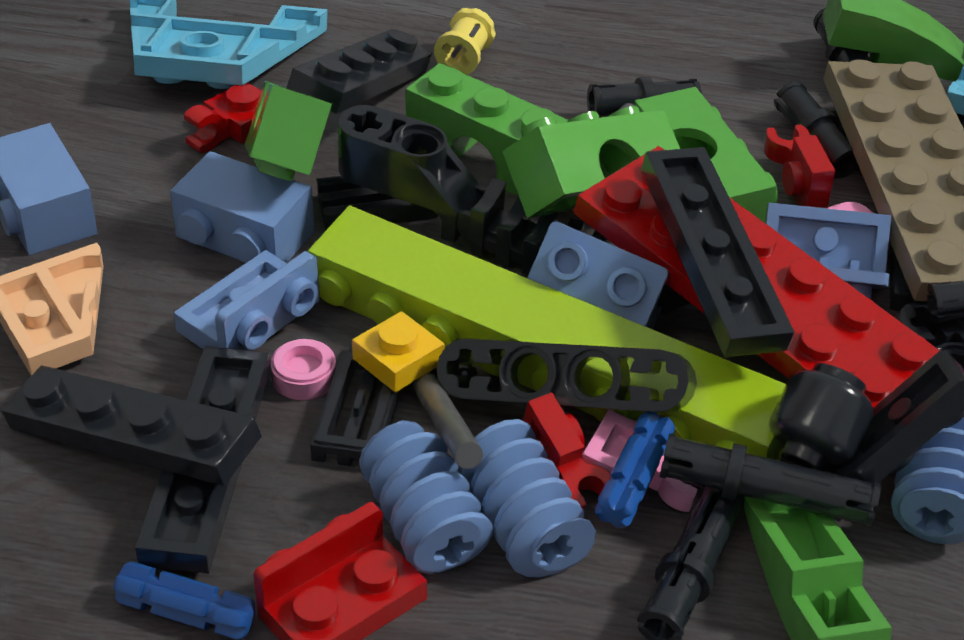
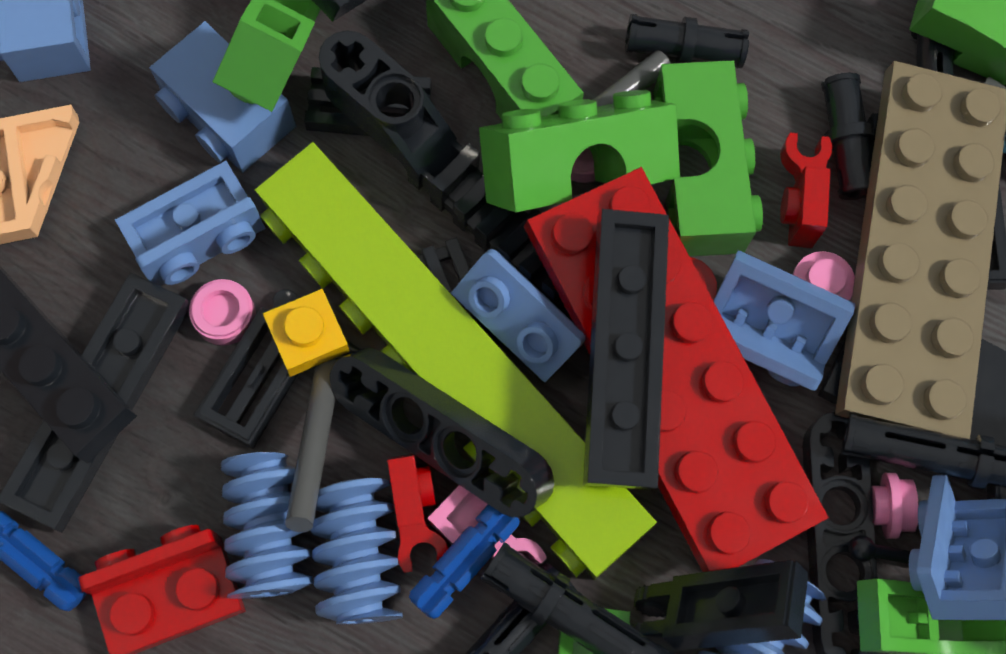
camera: 15 degrees right, 30 degrees up
(821, 416) = (654, 571): black head -> none

